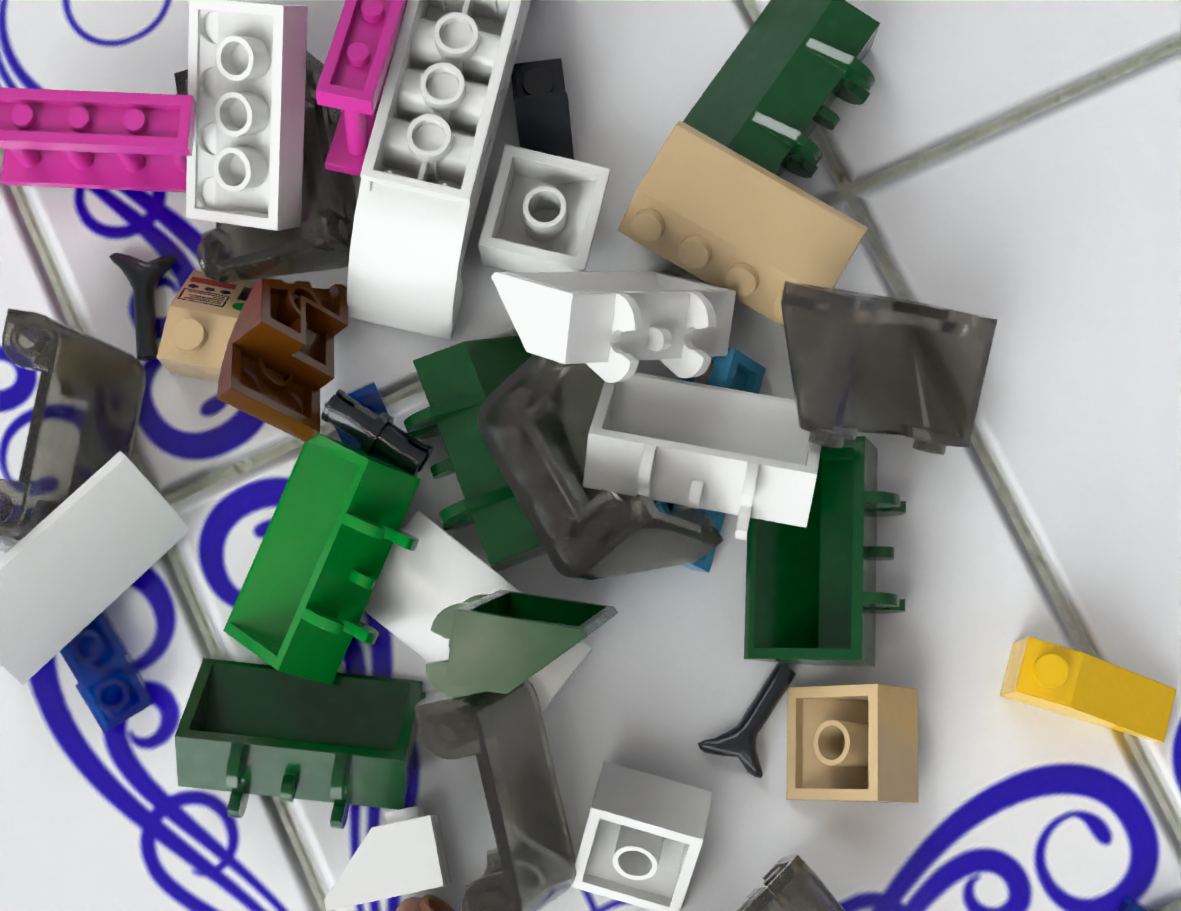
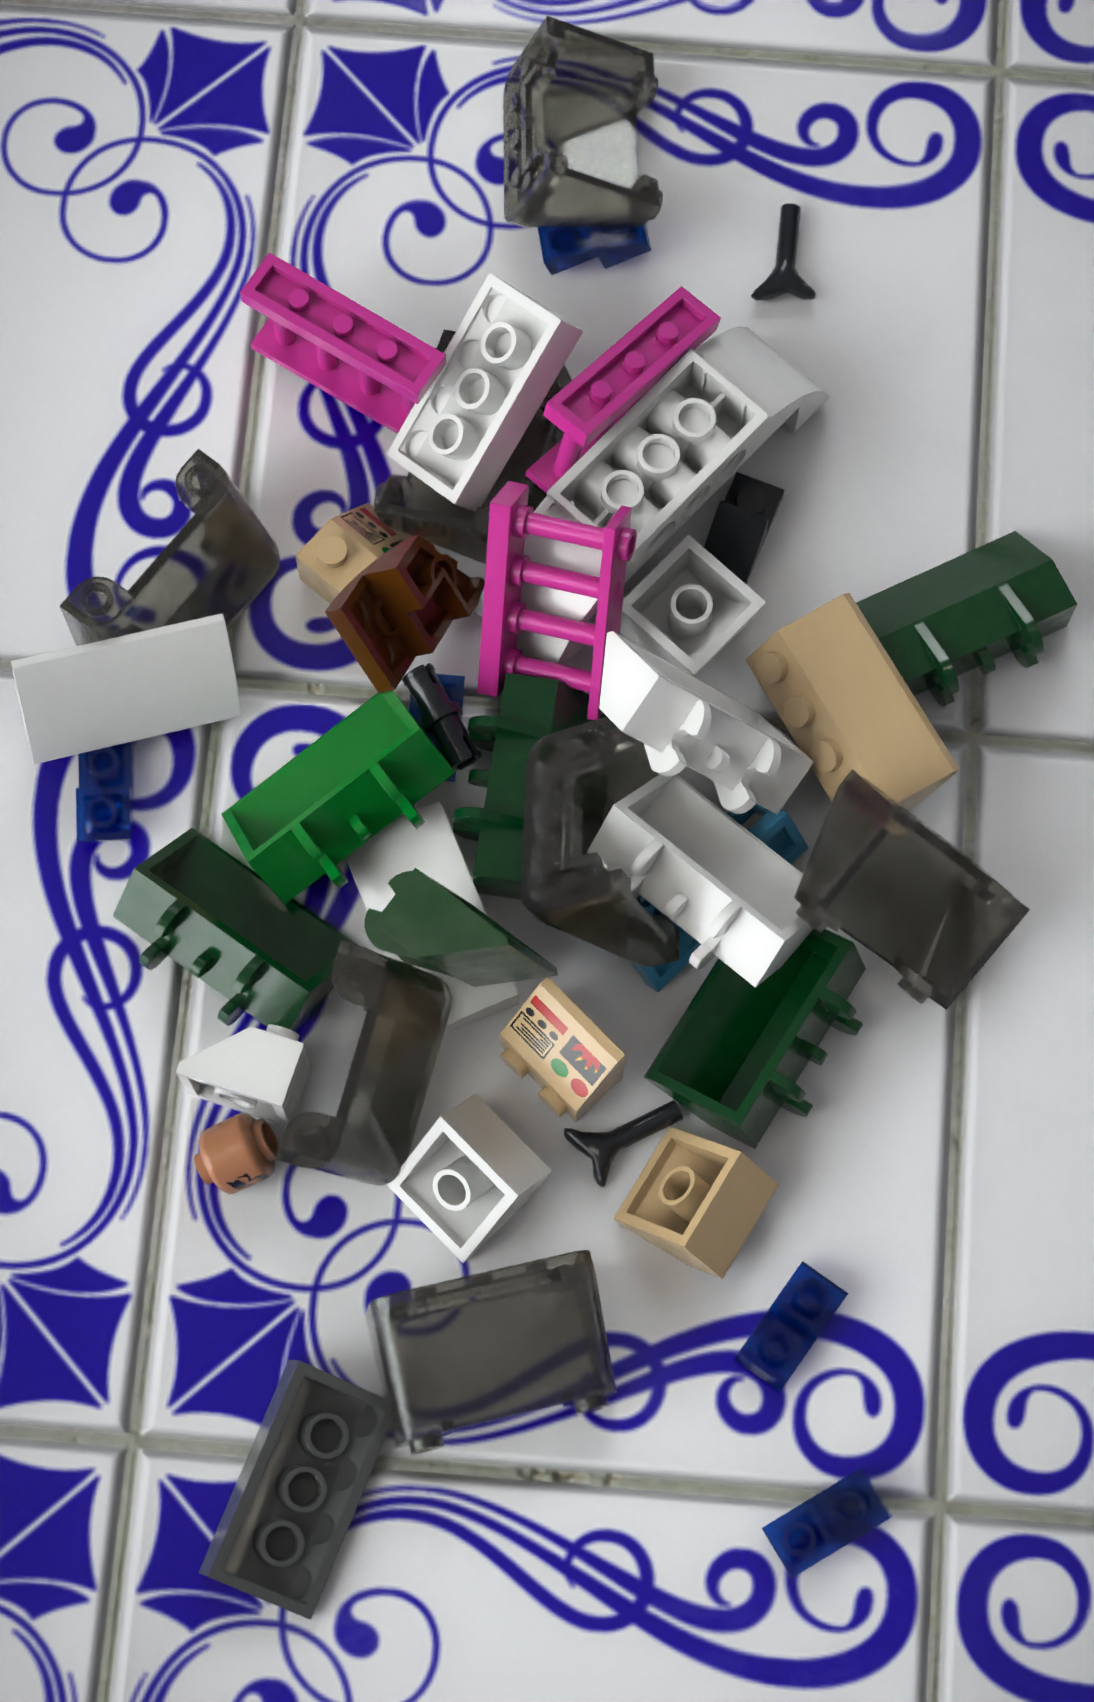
camera: 30 degrees right, 5 degrees down
(143, 280) = (322, 488): black piece -> none
(367, 264) = (509, 570): none -> dark pink fence
(660, 680) = (561, 1052): none -> tan slope
(995, 807) = (791, 1326): none -> clear blue slope
(1087, 689) = (931, 1273): yellow slope -> none

